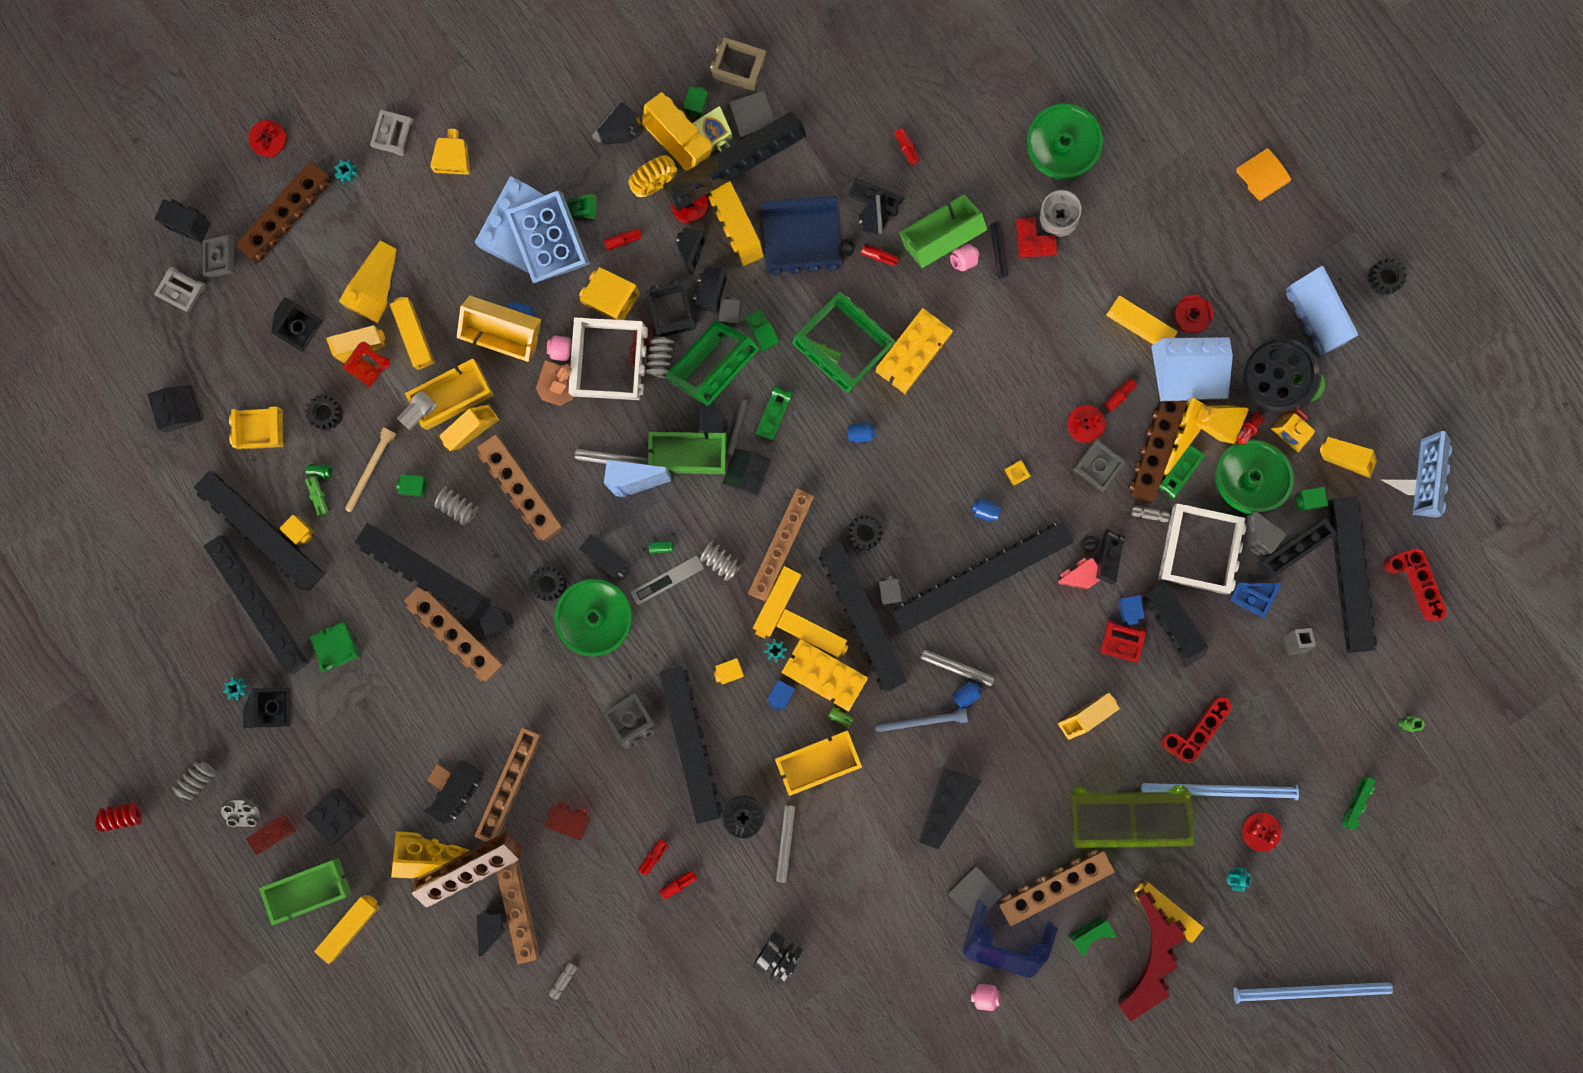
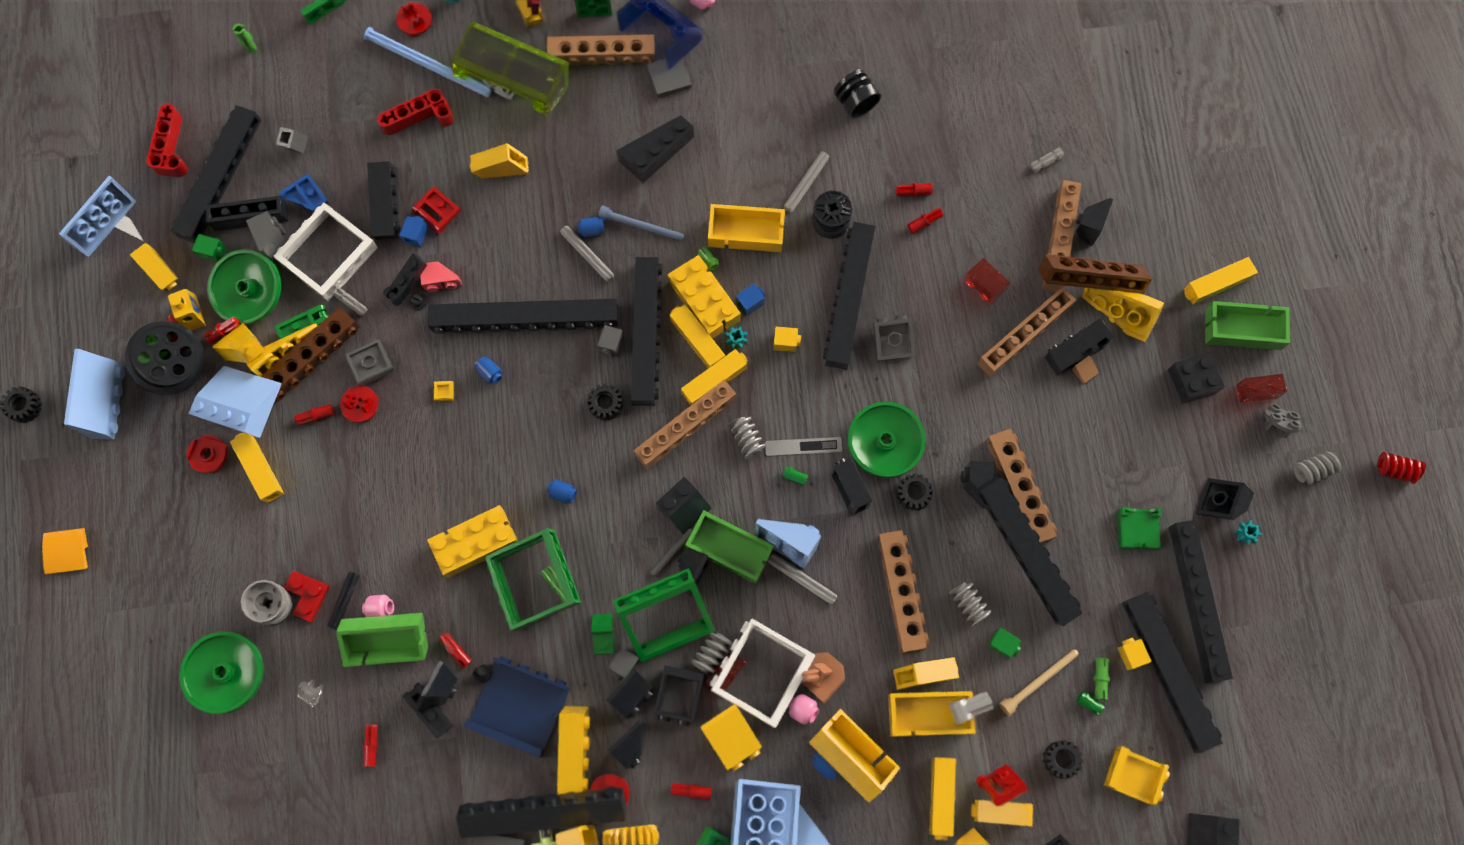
camera: 160 degrees left, 10 degrees down
(774, 414) = (631, 548): green plate -> none
(982, 161) = (308, 693): none -> clear tile

